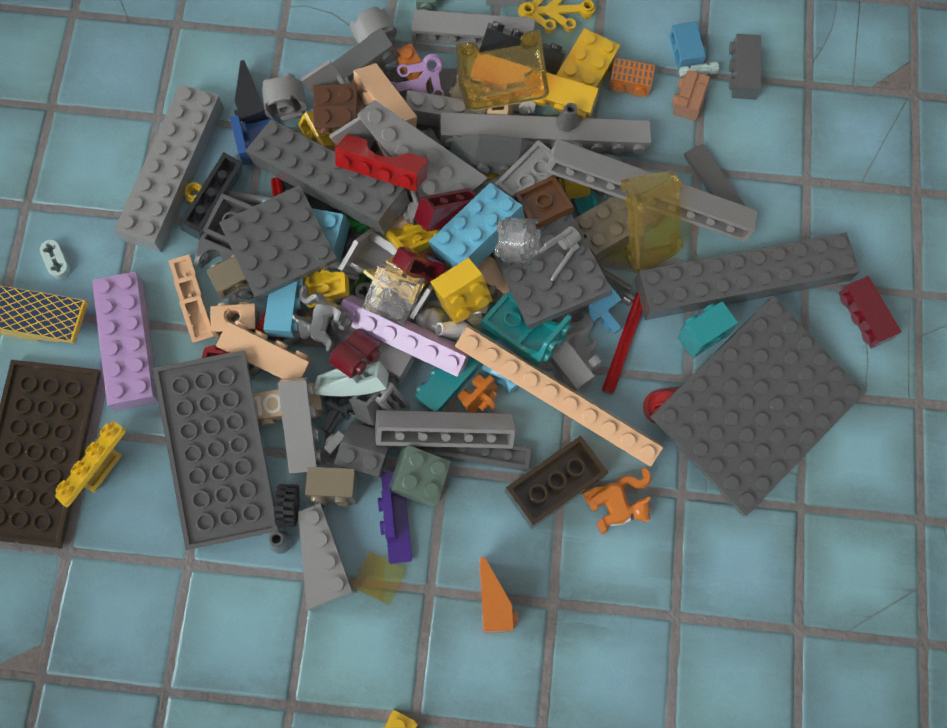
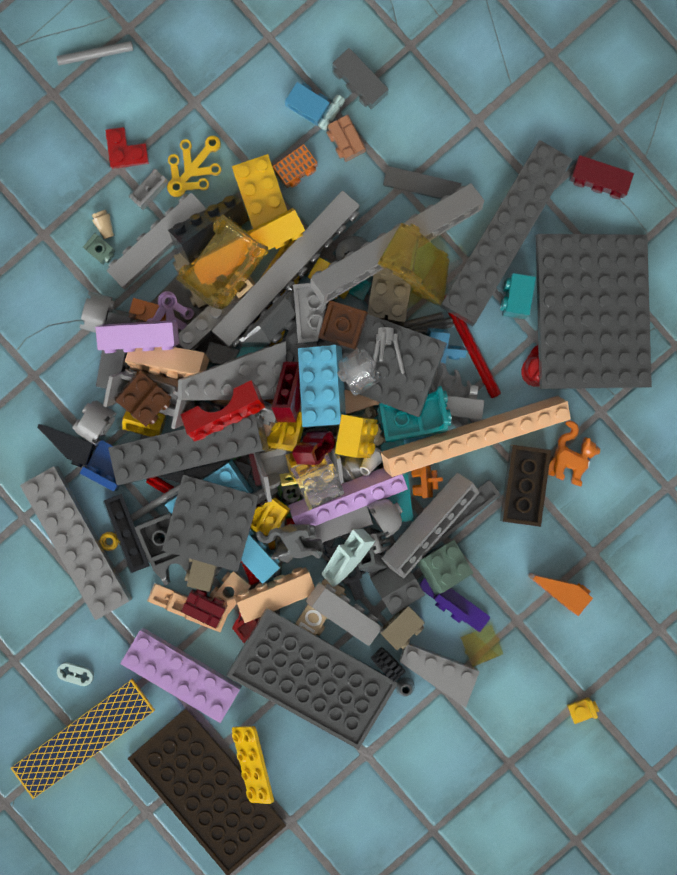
camera: 45 degrees left, 15 degrees up
(200, 304) = (204, 608): none -> dark red brick
(333, 443) = (372, 600): light grey plate -> none
(355, 353) = (336, 541): dark red brick -> none
(383, 58) = (137, 335): none -> lavender brick
(417, 380) = (386, 515): none -> light grey cylinder
(567, 118) = (295, 254): dark grey cone -> none

